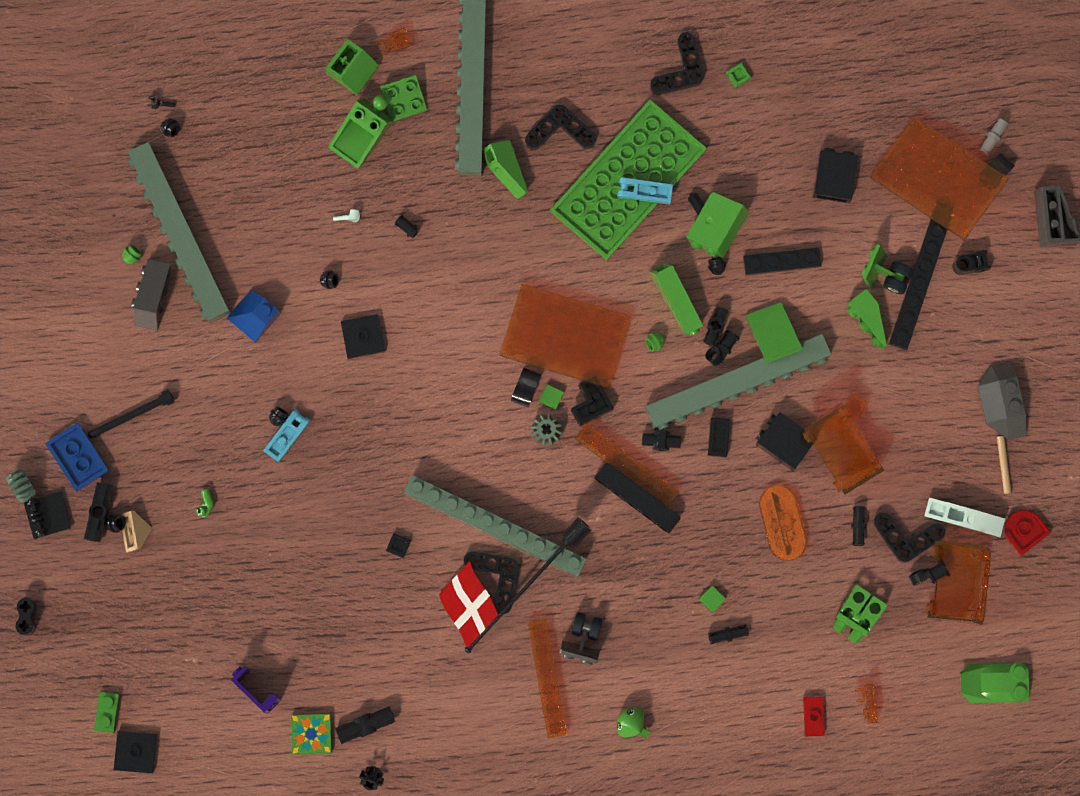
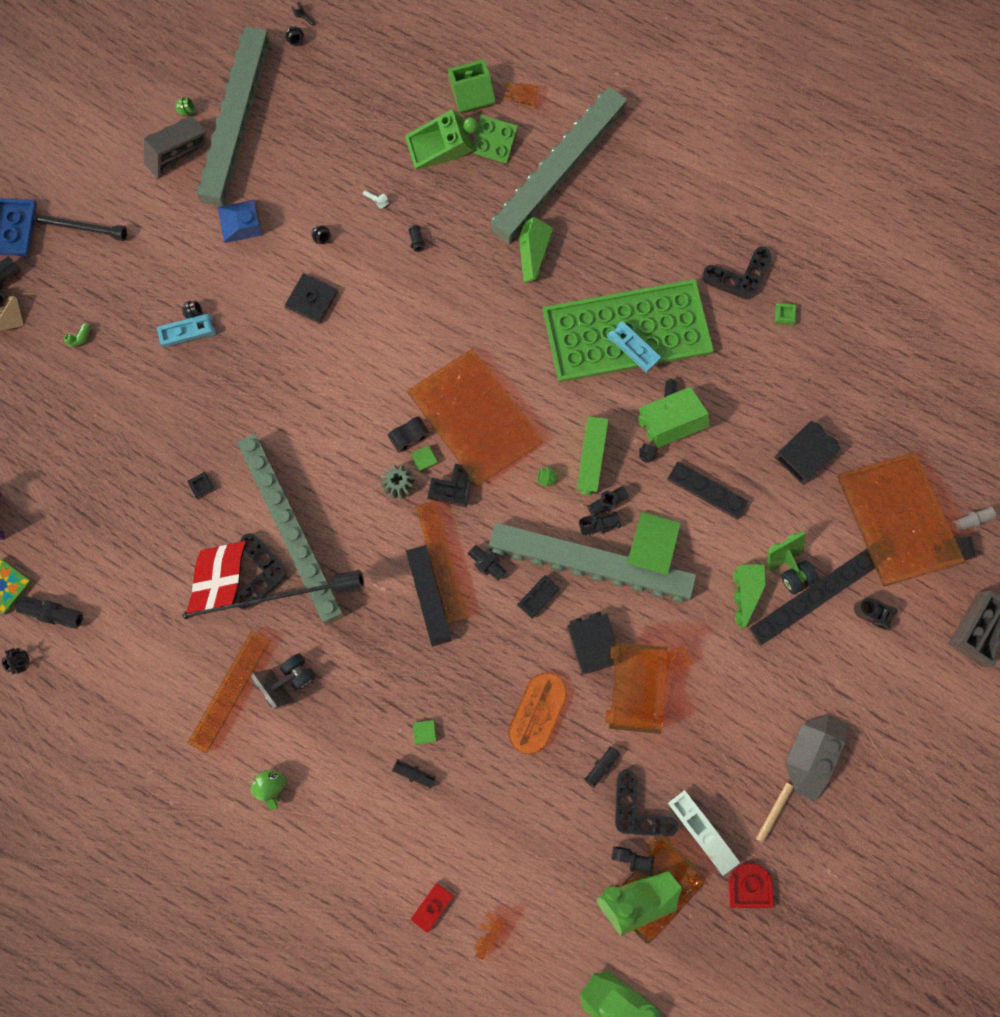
camera: 40 degrees right, 5 degrees down
(556, 124) = (603, 245): black beam -> none
(854, 618) = (536, 849): bright green hips -> none
(956, 598) = (640, 901): none -> bright green slope

